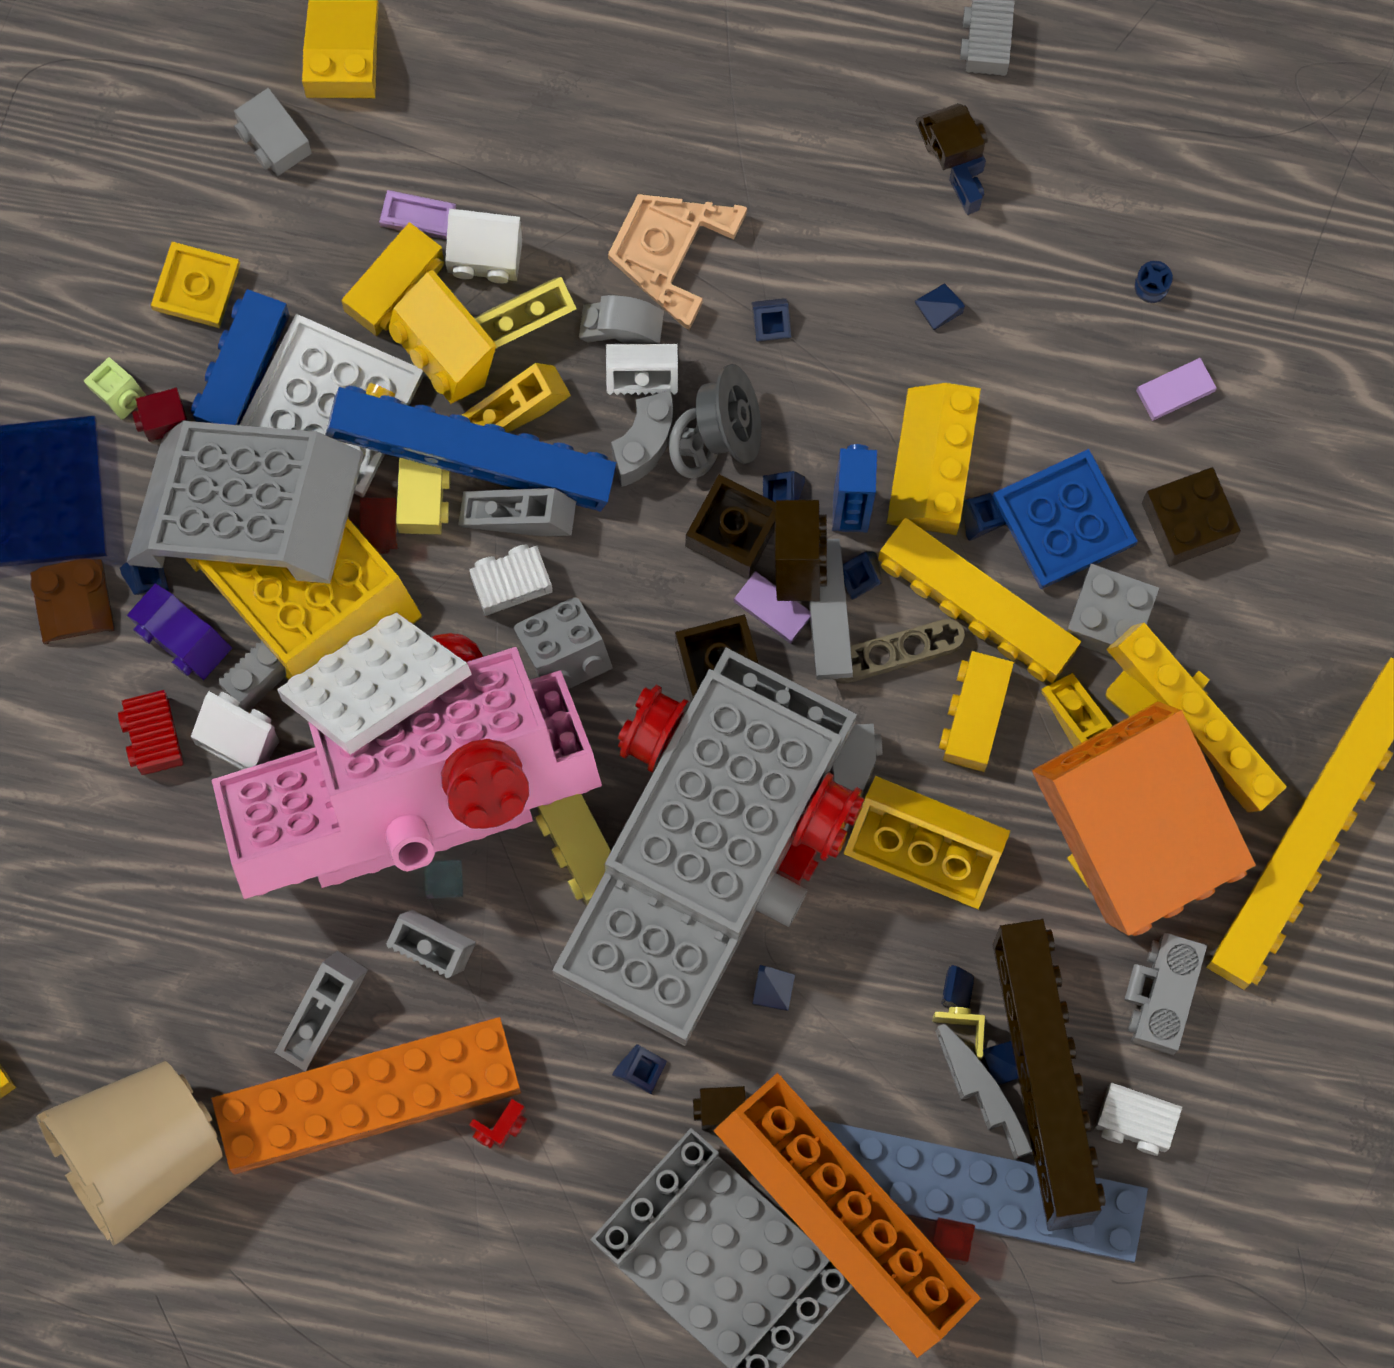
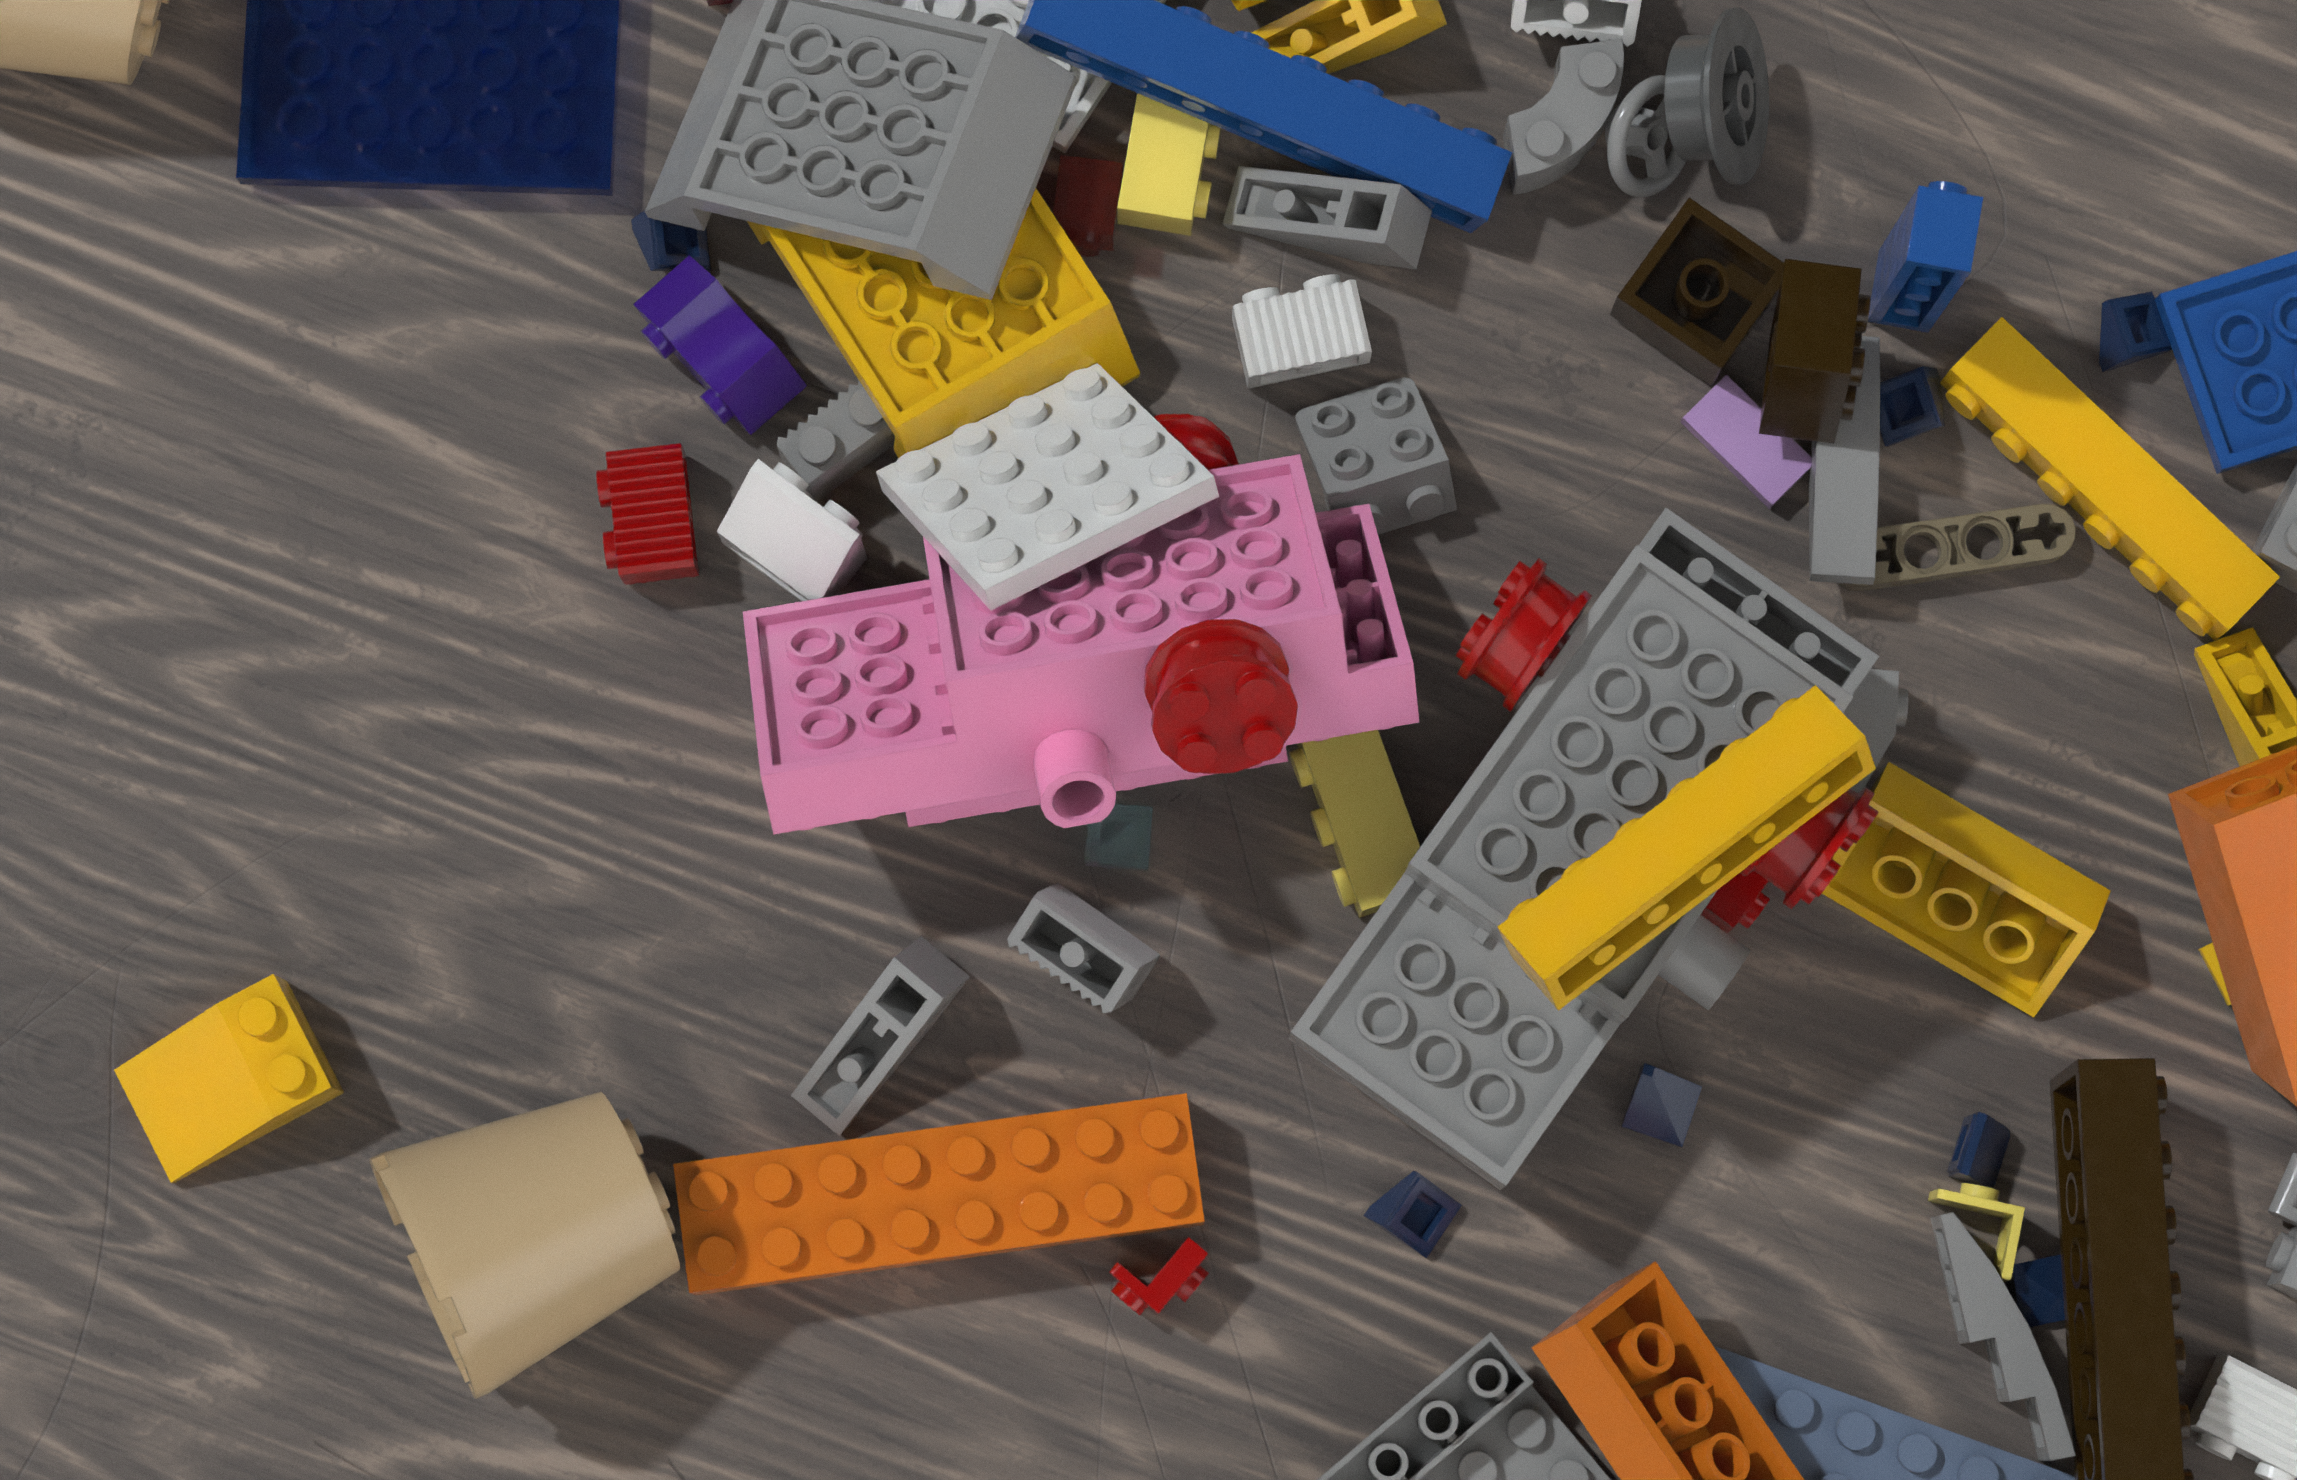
camera: 10 degrees right, 5 degrees up
(72, 599) = (543, 263): reddish brown slope -> none
(703, 646) = (1623, 499): dark brown brick -> none
(717, 1105) = (1540, 1298): dark brown brick -> none
(757, 832) = (1686, 846): none -> yellow brick
(783, 486) = (1793, 232): dark blue slope -> none
(934, 456) = (2064, 216): yellow slope -> none
(976, 711) = (2078, 672): yellow brick -> none

